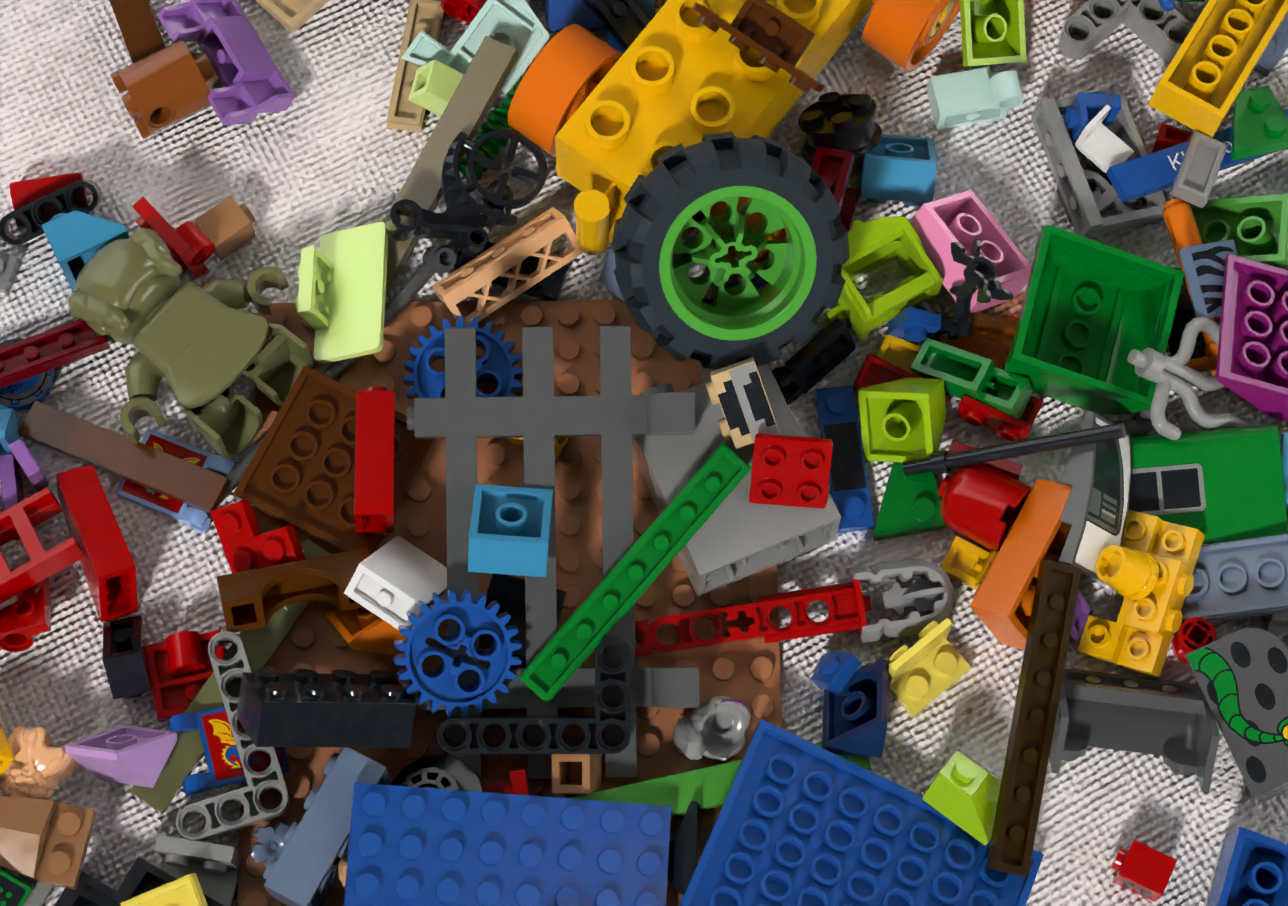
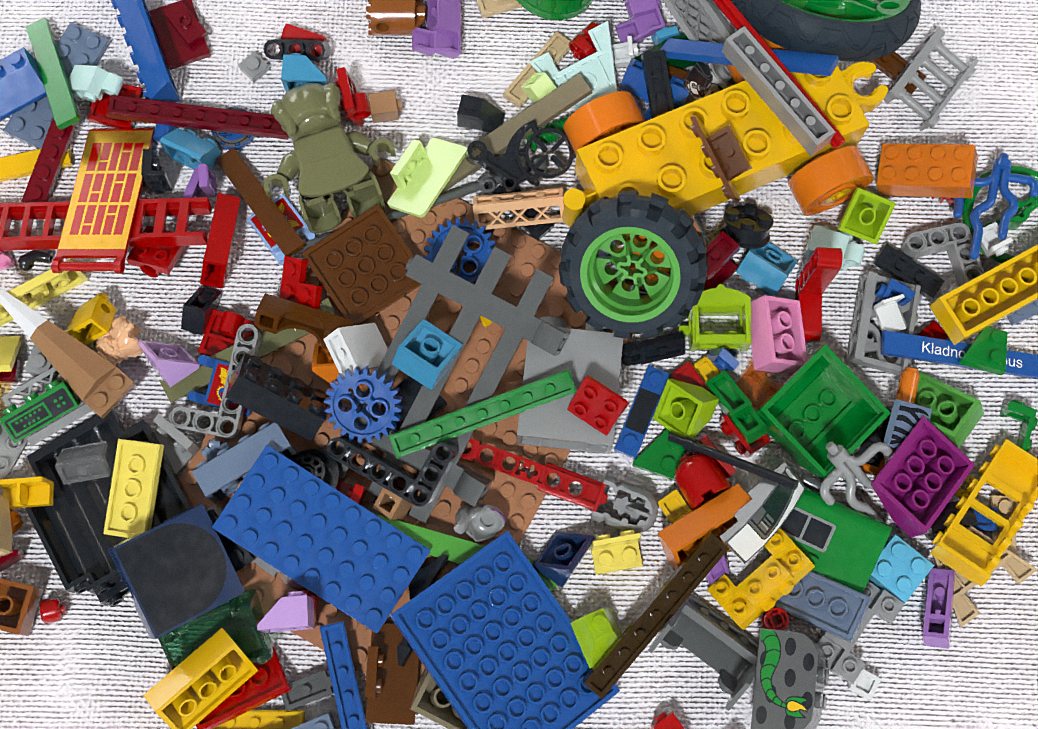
camera: 30 degrees right, 5 degrees up
(370, 168) = (478, 114): none -> black slope
(374, 460) = (383, 276): red slope -> none
(742, 402) = (592, 353): brick -> none
(835, 670) = (566, 525): blue plate -> none
(976, 151) = (812, 283): none -> red beam
(979, 275) = (769, 353): black piece -> none
(1089, 74) = (908, 271): none -> black plate
(1127, 571) = (757, 563): yellow piece -> none
(1198, 169) = (936, 358): light grey tile -> none

